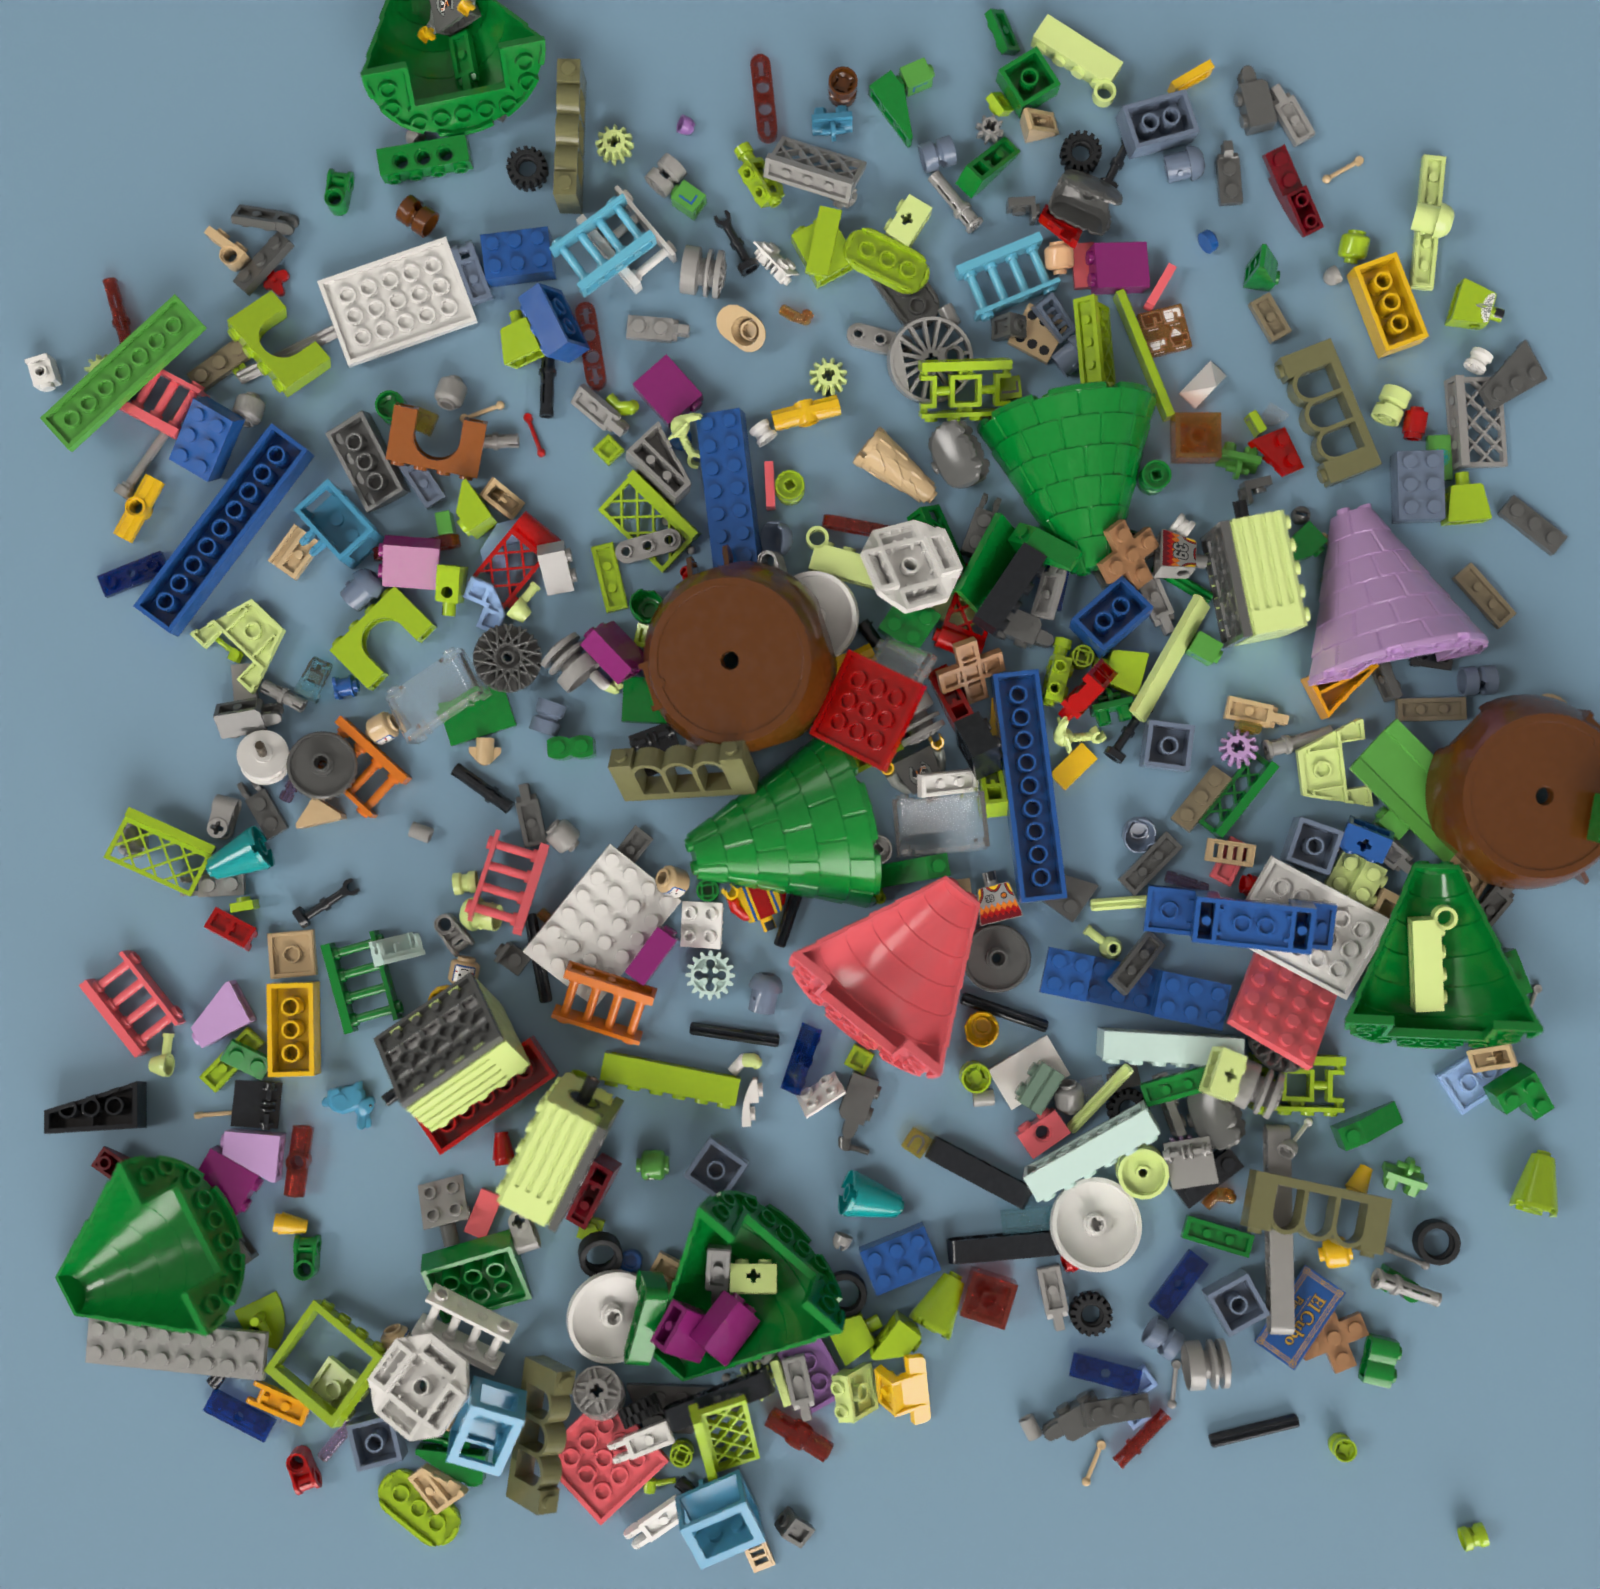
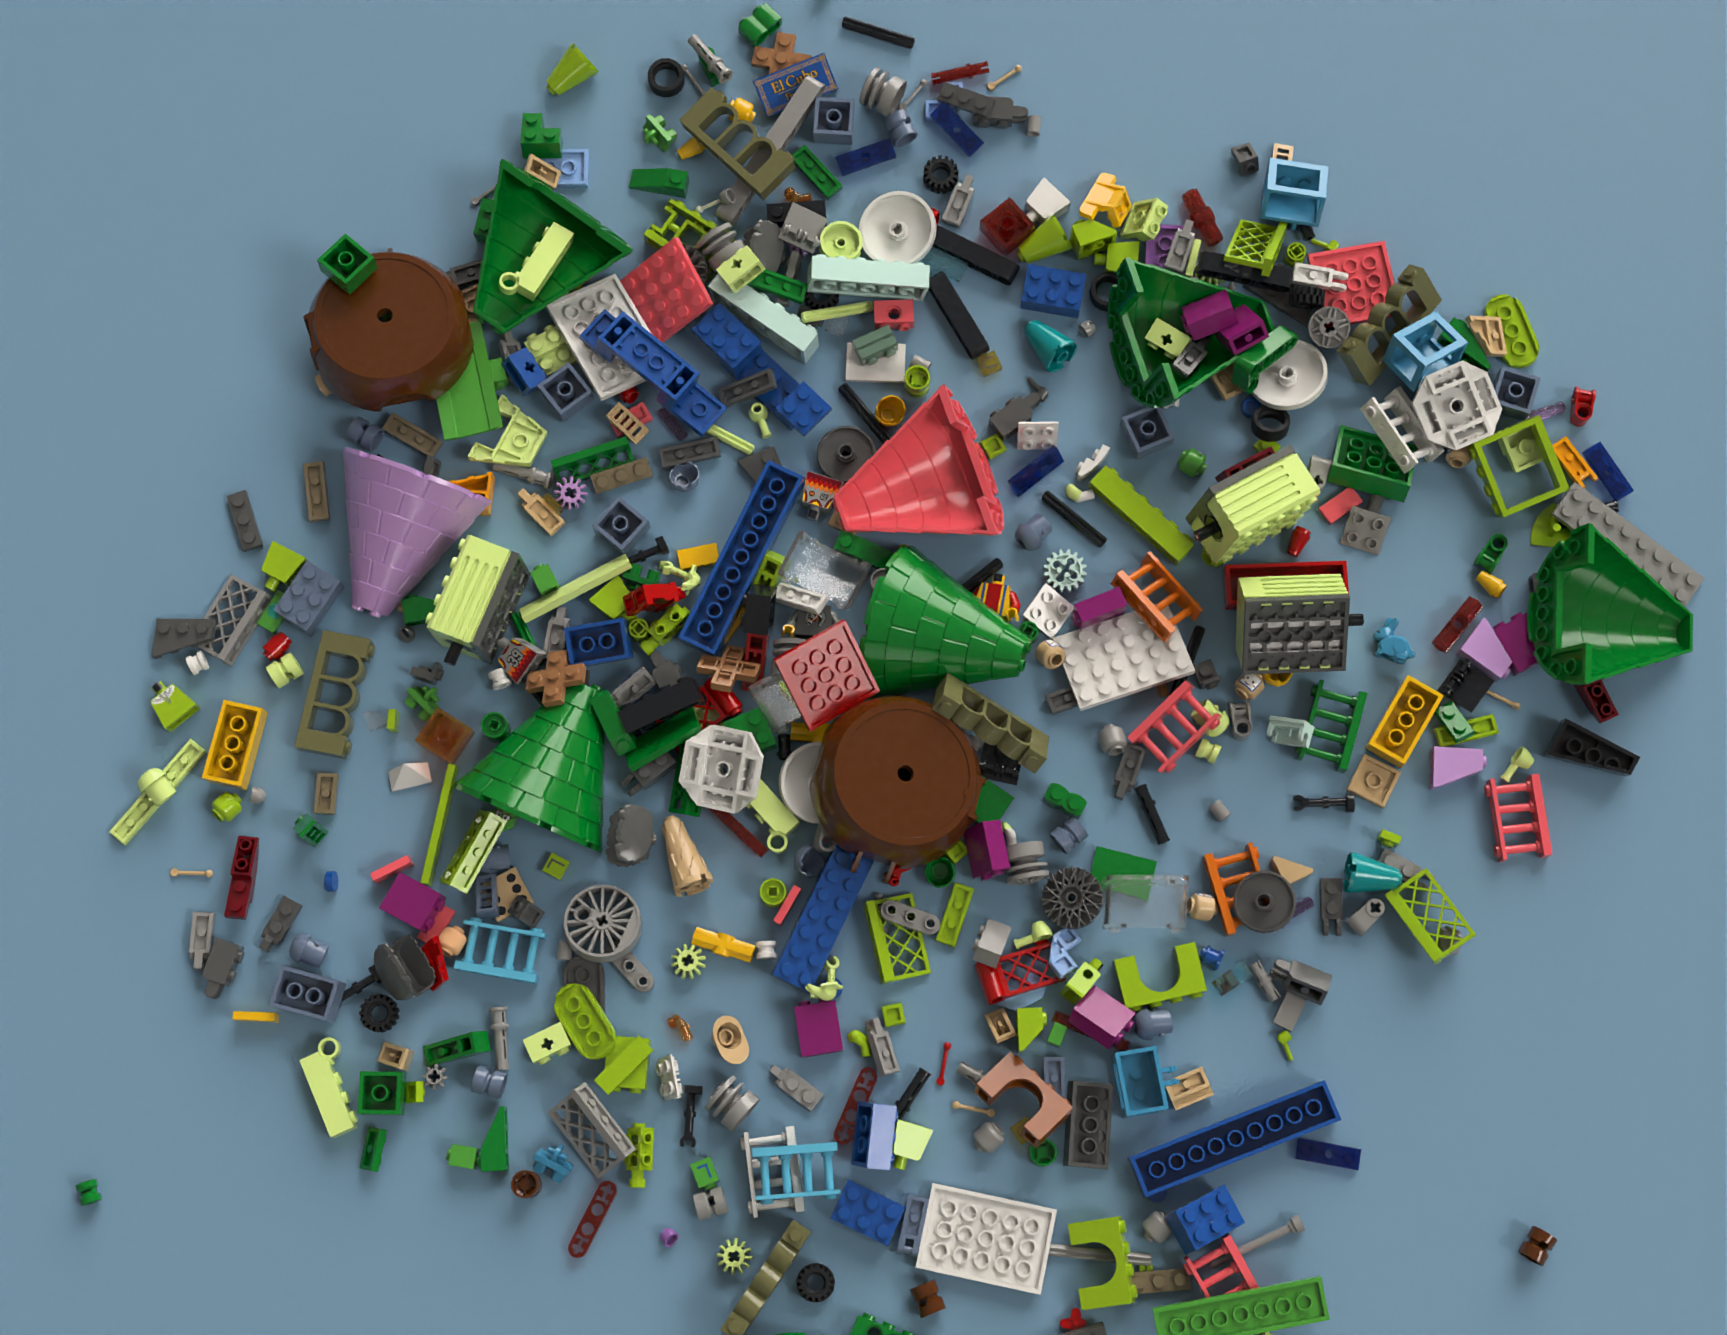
camera: 145 degrees left, 10 degrees down
(131, 521) = (1305, 1195): yellow piece -> none
(231, 928) = (1409, 826): red hinge -> none
(252, 633) = (1260, 1047): yellowish green wing -> none
(263, 757) = (1307, 940): white wheel -> none
(484, 751) = (1132, 841): tan piece -> none
(653, 1524) = (1344, 219): white hinge -> none
(658, 464) = (862, 973): light grey wedge -> none
(964, 371) = (585, 896): lime fence -> none
(965, 1348) = (1045, 202): none -> white torso
(1021, 205) = (453, 1000): dark grey bracket -> none
(1069, 1097) = (857, 326): light grey head -> none
(1165, 330) = (410, 835): clear orange tile -> none
(1278, 451) = (390, 689): red wing -> none
(1385, 902) = (540, 321): tan panel -> none

